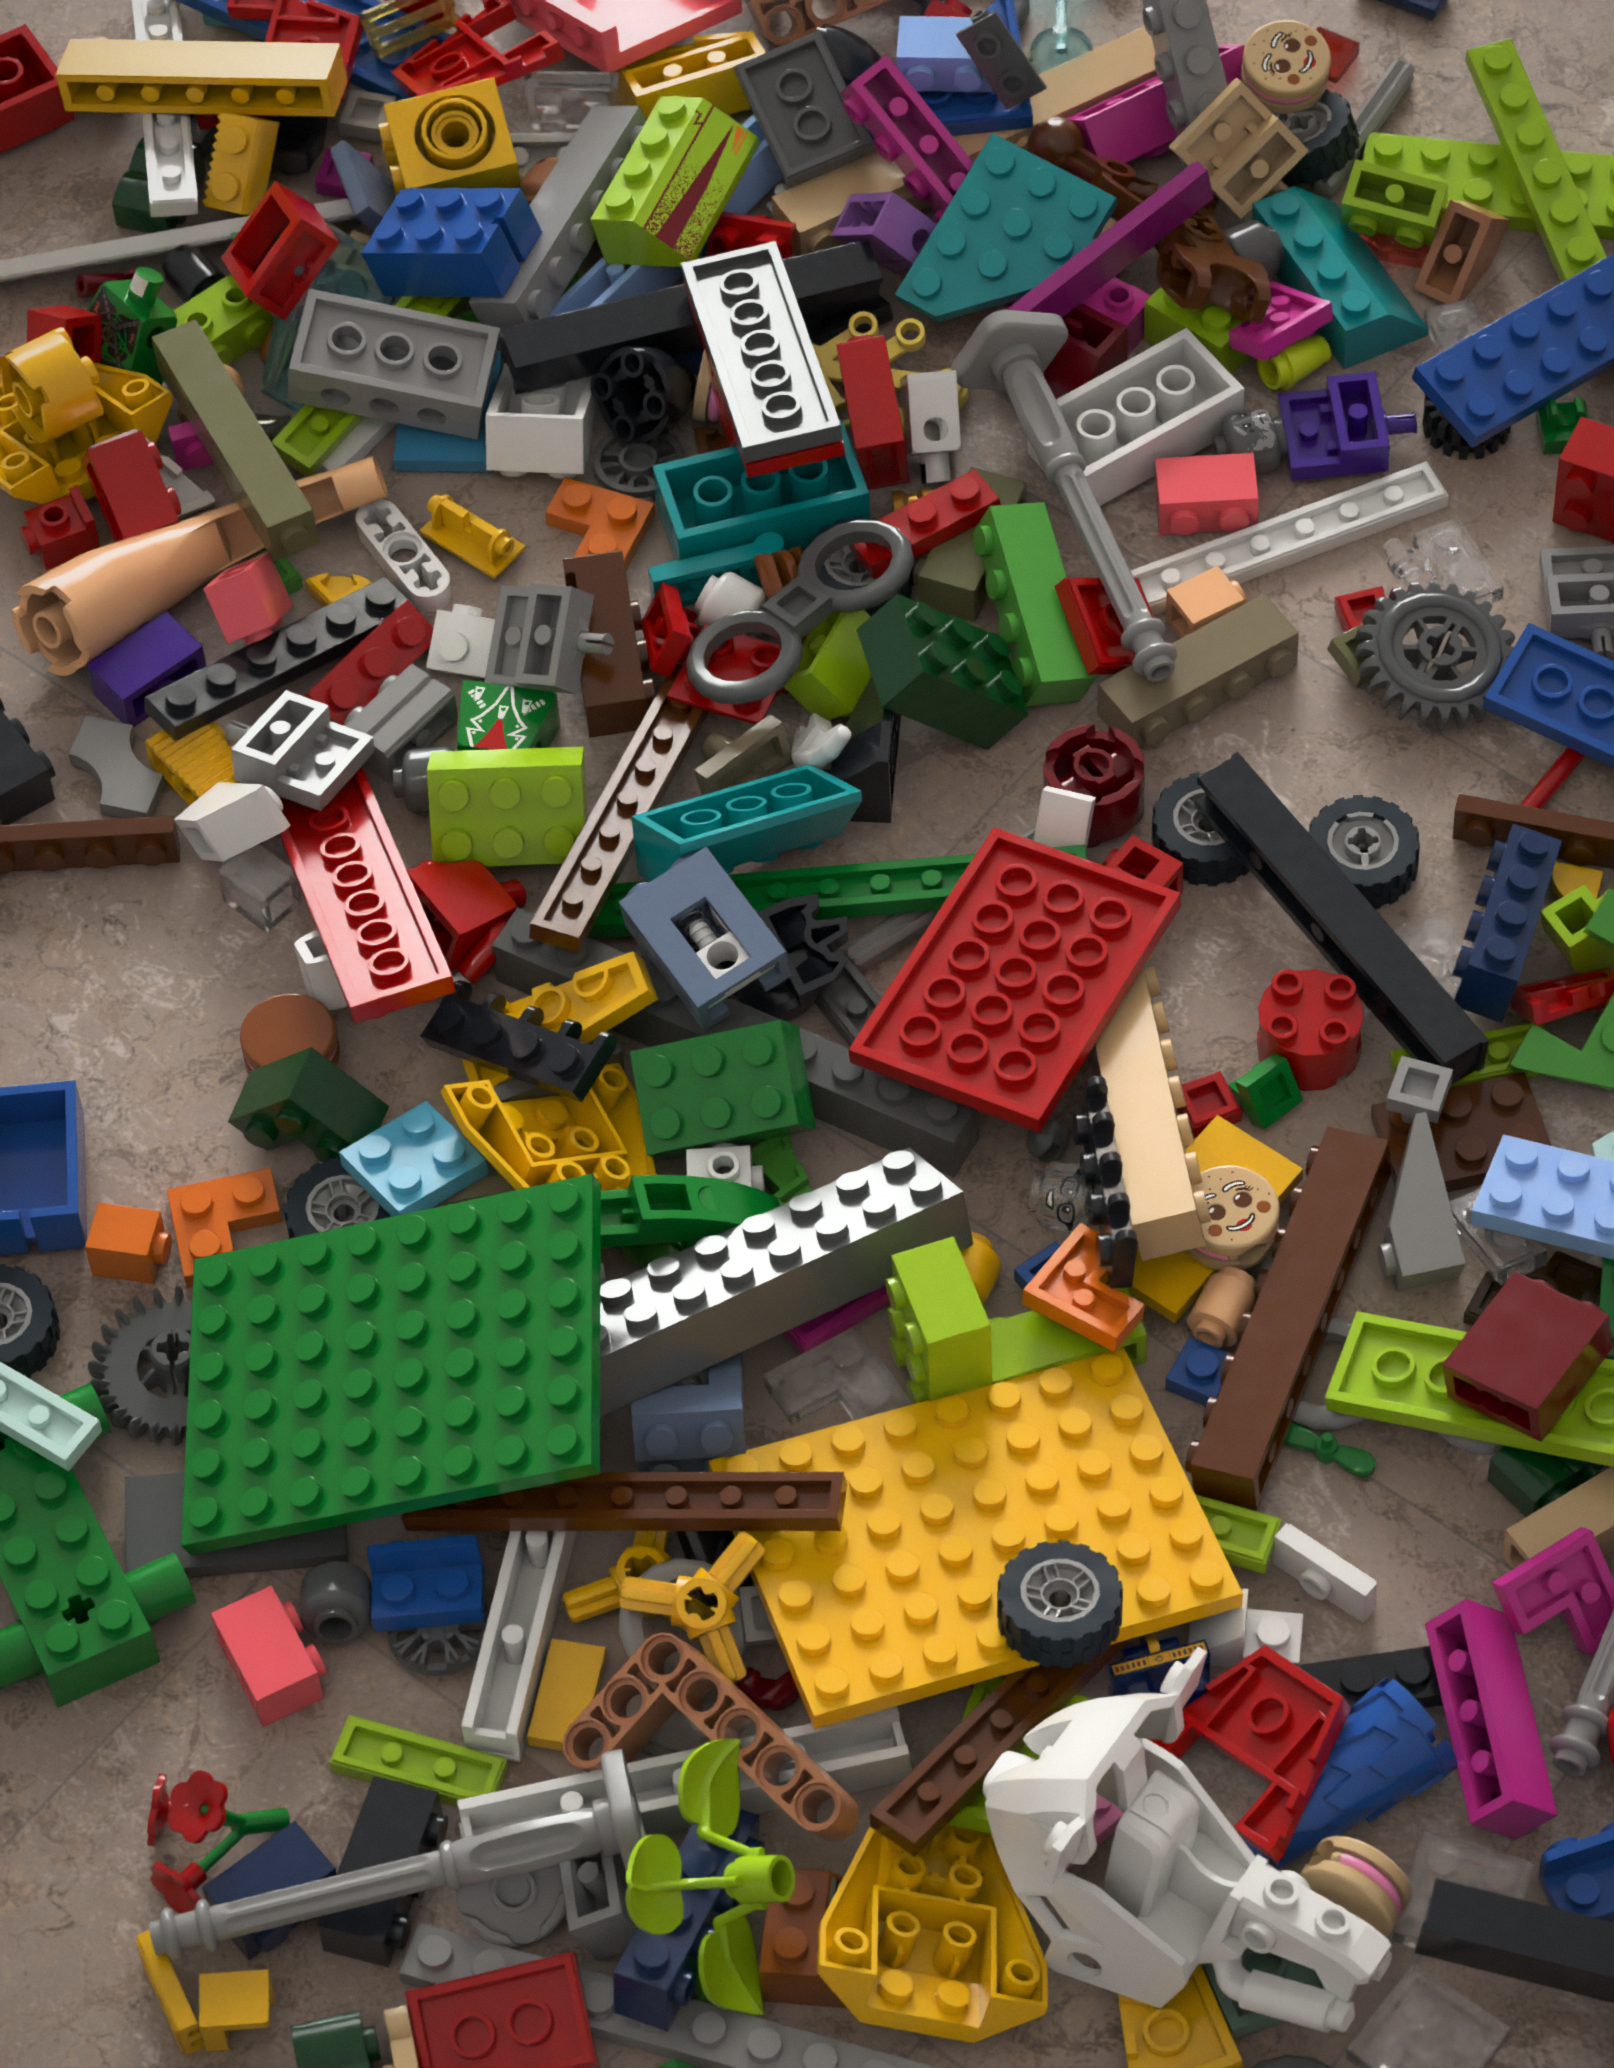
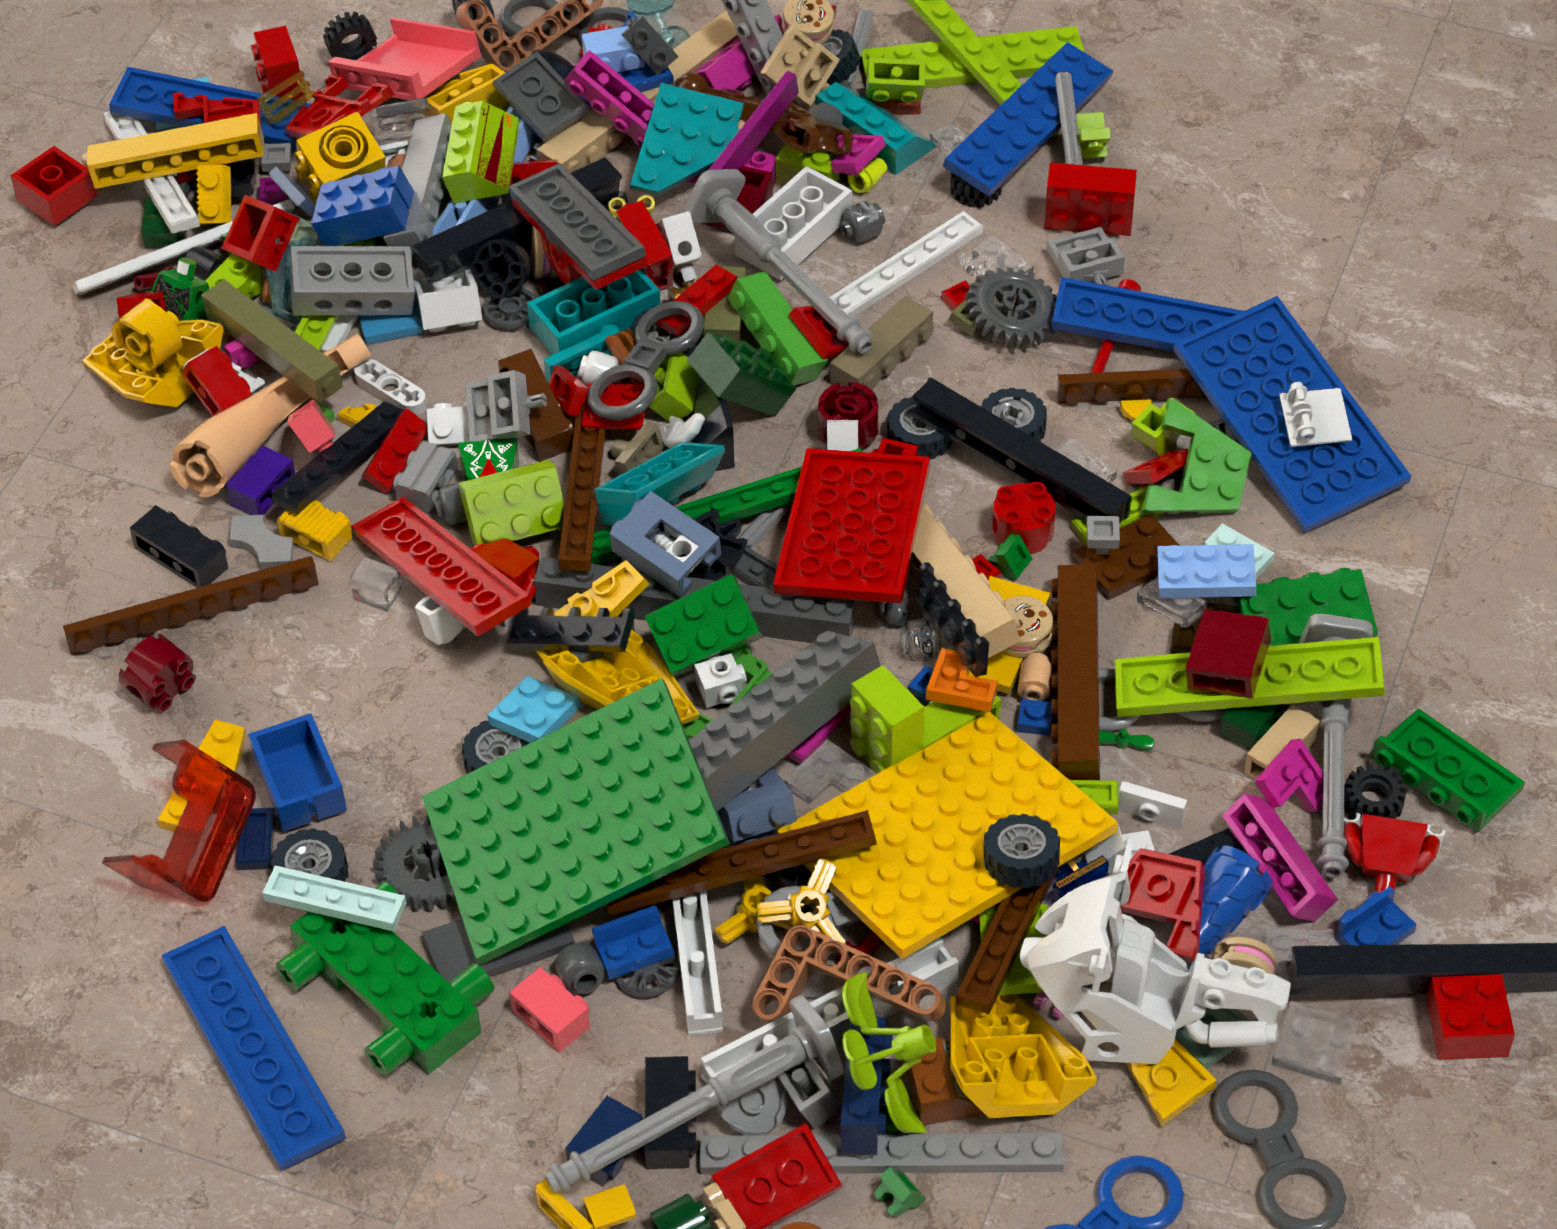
camera: 20 degrees left, 5 degrees down
(60, 529) = (177, 417): red brick -> none
(127, 1243) = (373, 800): orange brick -> none
(195, 1811) = (550, 1102): red plant -> none
(215, 1208) = (416, 773): orange plate -> none
(232, 820) = (349, 548): white slope -> none
(285, 1027) = (428, 667): dark orange head -> none
(298, 751) = (375, 502): light grey plate -> none
(306, 1102) = (452, 693): dark green brick -> none
(417, 1760) = (632, 1046): lime tile -> none
(470, 536) = (430, 369): yellow hinge -> none
(566, 1688) = (737, 985): yellow tile -> none
(602, 516) = (498, 341): orange plate -> none
(677, 1209) = (710, 693): green slope -> none
(889, 224) = (614, 144): medium lavender torso -> none
(1201, 601) = (870, 307): light nougat brick -> none
(1206, 493) = (847, 253): coral brick -> none
(1339, 428) = (910, 203): dark purple plate -> none
(1421, 1231) = (1130, 606): light grey slope -> none
(1461, 251) = (938, 99): nougat slope -> none
(1506, 923) = (1112, 434): dark blue brick -> none
(1558, 422) = (1031, 177): green tile -> none

